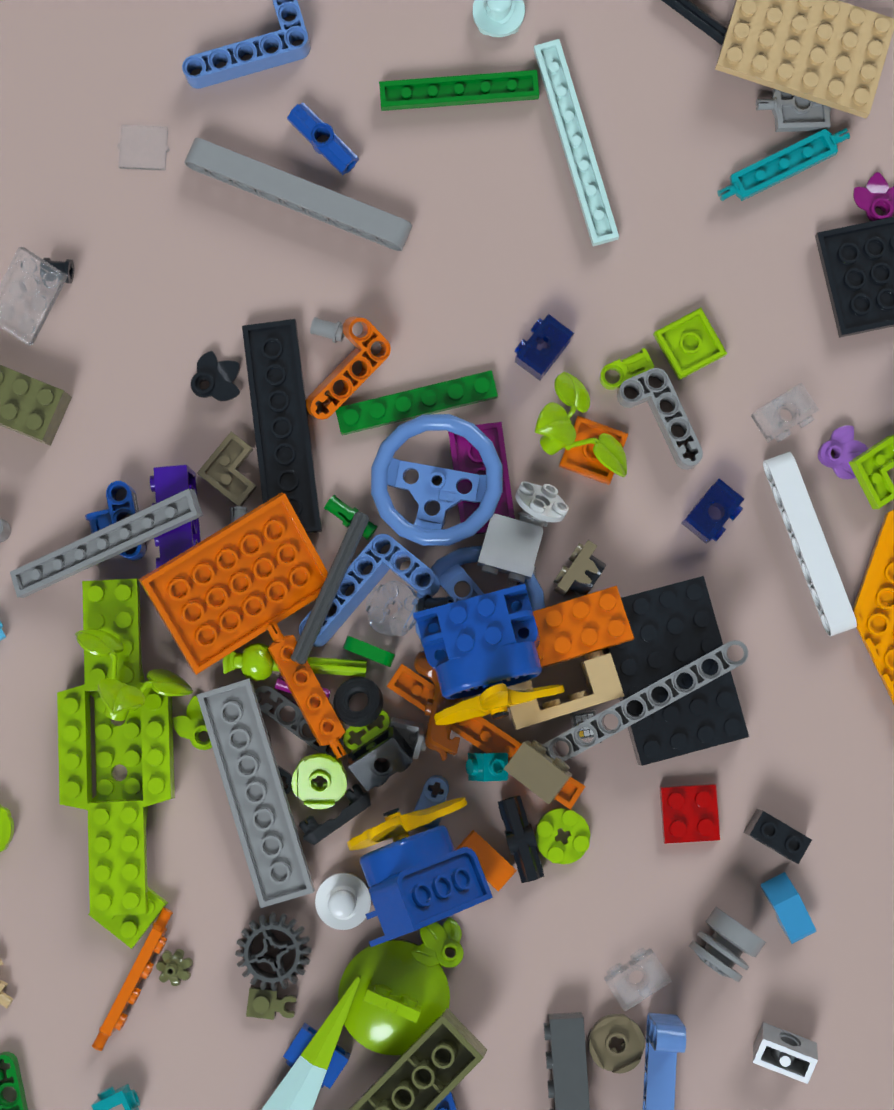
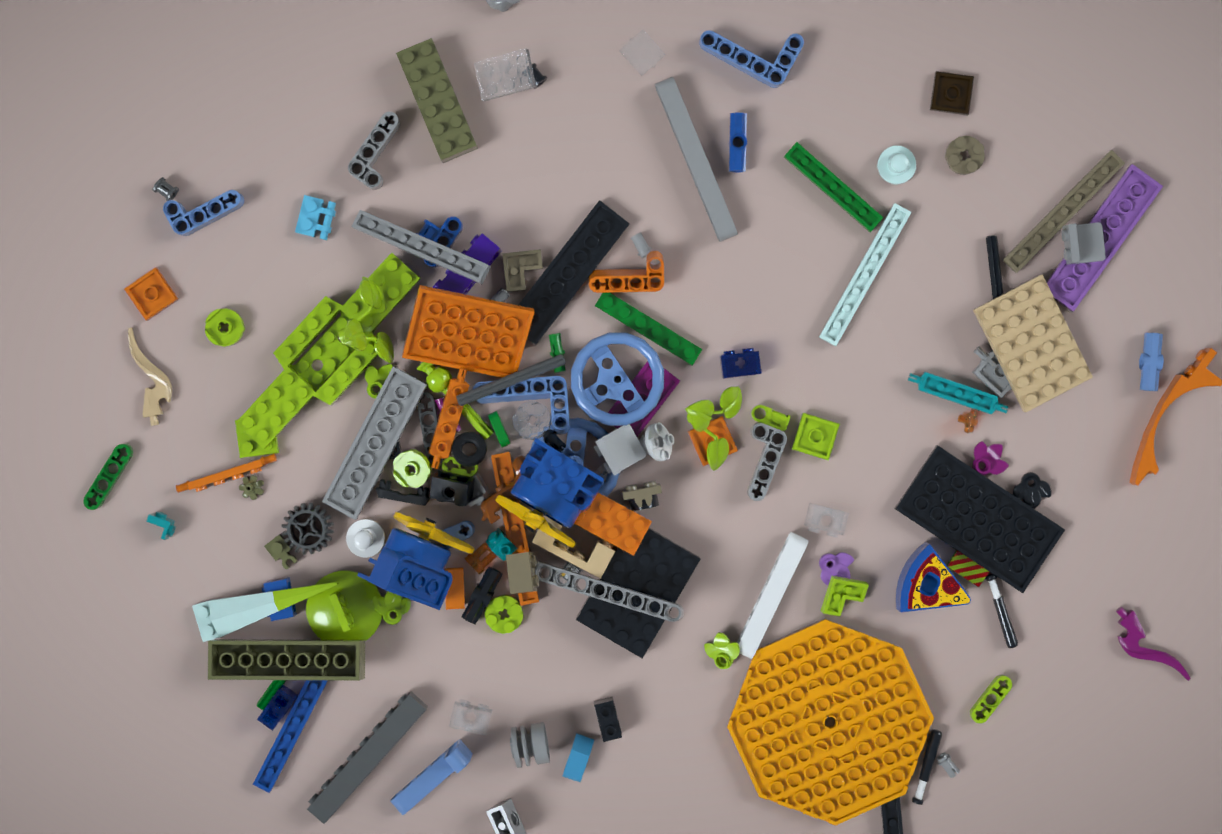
camera: 35 degrees right, 5 degrees up
(219, 375) = (563, 213): black plate -> none
(485, 811) = (477, 564): none -> clear orange piece
(632, 1047) = (420, 742): dark tan plate -> none
(689, 813) = (577, 665): red plate -> none
(725, 500) = (728, 529): clear blue brick -> none
(817, 645) = (721, 649): none -> lime plate
(821, 180) = (969, 420): none -> clear orange plant

